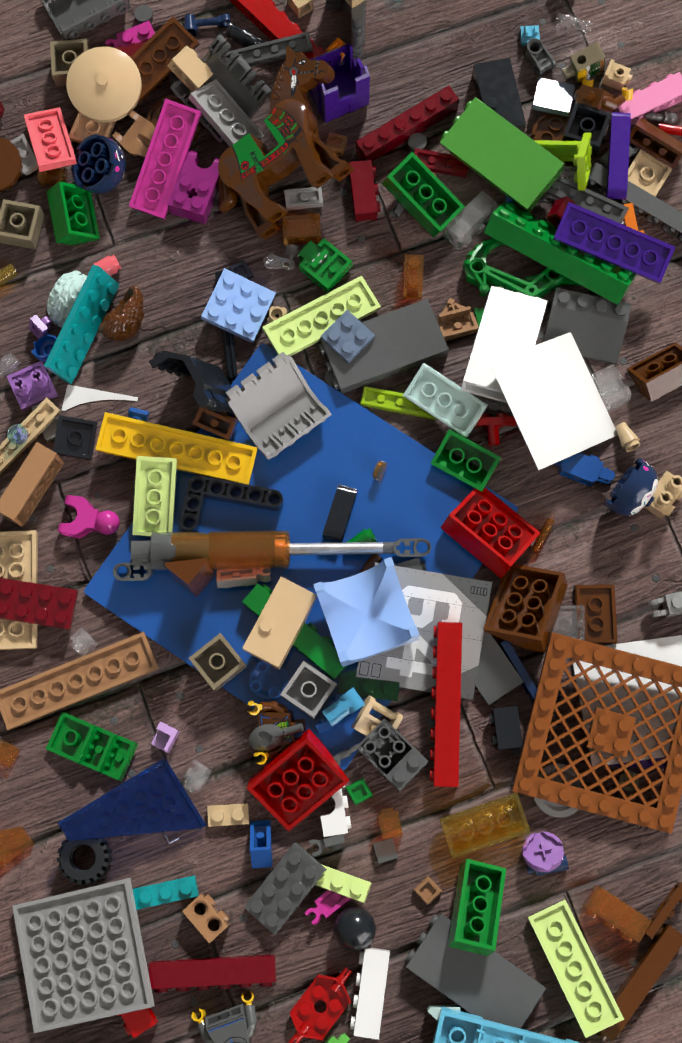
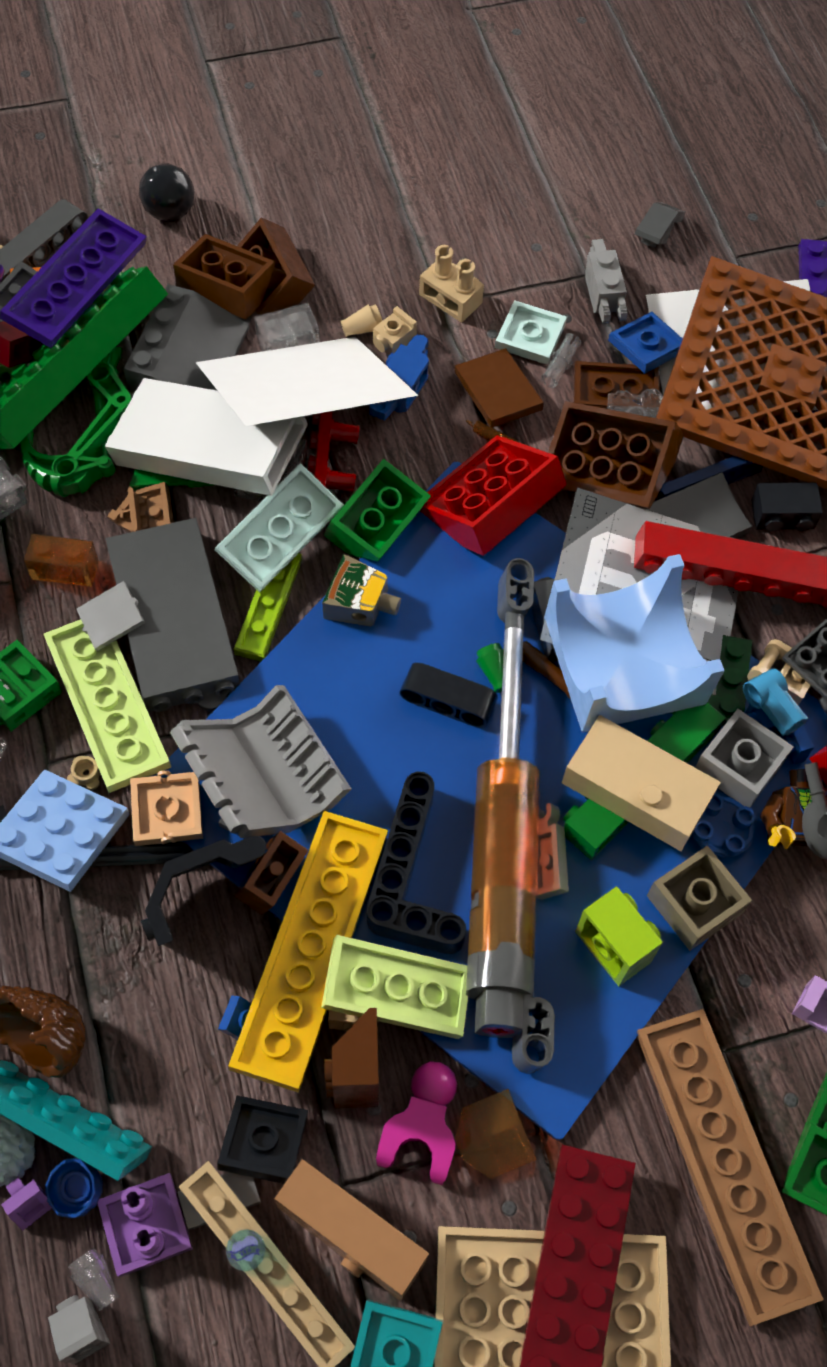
camera: 90 degrees left, 15 degrees down
(78, 395) = (176, 1137): white sticker -> none
(83, 642) = (656, 1142): clear brick -> none
(84, 556) = (493, 1136): none -> clear orange slope
(107, 478) = (353, 1070): none -> reddish brown slope
(190, 615) = (618, 935): none -> lime brick
(192, 574) = (559, 911): reddish brown slope -> none
(251, 357) = (166, 808): none -> light nougat plate
(347, 336) = (150, 654): sand blue plate -> none
(373, 310) = (110, 616): none -> light grey piece
(380, 470) = (382, 631): tile -> none
(404, 453) = (358, 594): none -> torso
(582, 532) = (498, 388): none -> reddish brown tile
(612, 574) = (561, 360): none -> clear pin
(615, 464) = (393, 331): none -> tan brick
(634, 489) = (445, 310): dark blue cylinder -> none
(634, 552) = (530, 332): none -> light aqua plate
(636, 633) = (646, 342): none -> blue tile
(648, 340) = (225, 275): none -> reddish brown slope

